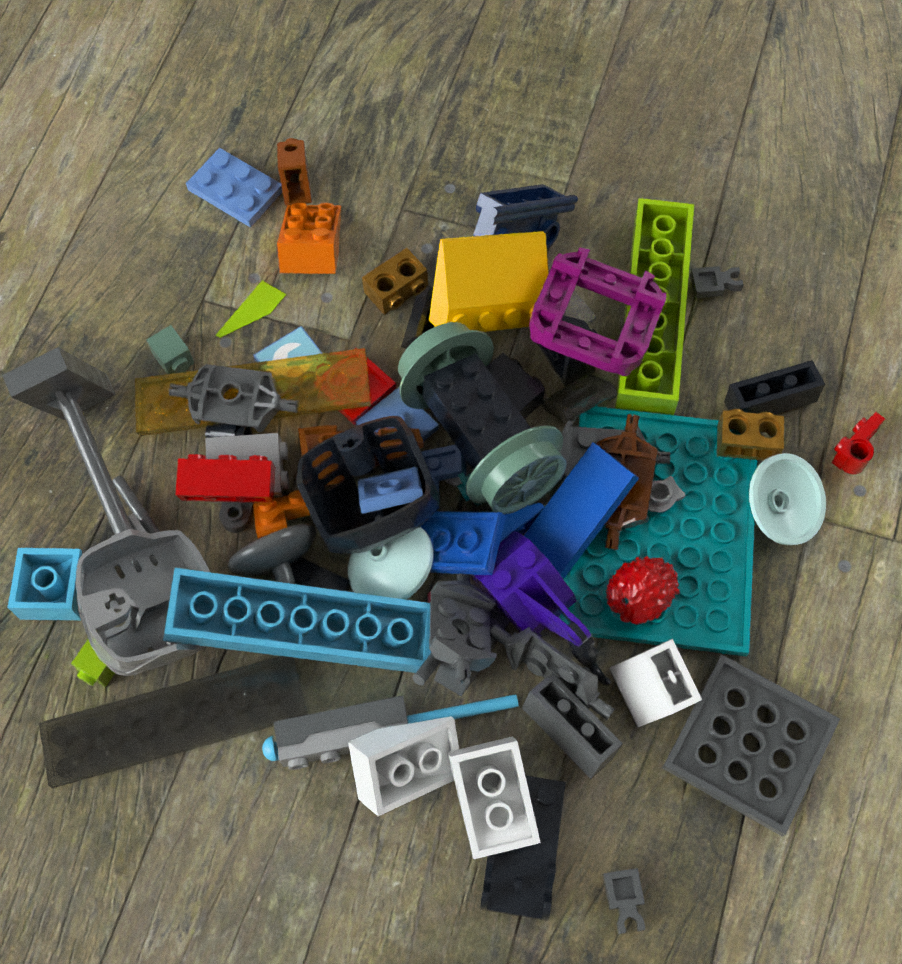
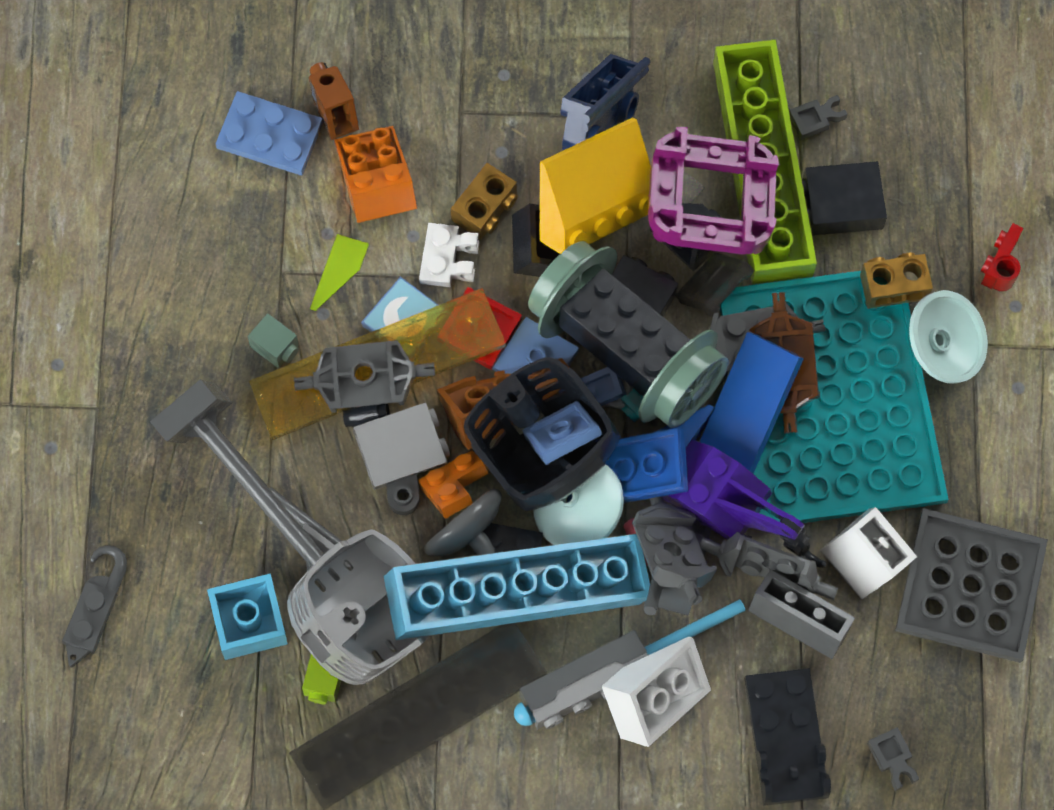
camera: 20 degrees left, 5 degrees up
(225, 479) = (392, 464): red brick -> none
(343, 315) = (440, 253): none -> white plate
(494, 797) = (749, 698): white slope -> none
(648, 587) = (835, 459): red piece -> none
(664, 495) = (829, 364): light grey animal -> none
(719, 353) = (844, 198): none -> black brick
(777, 390) = (909, 226): black brick -> none

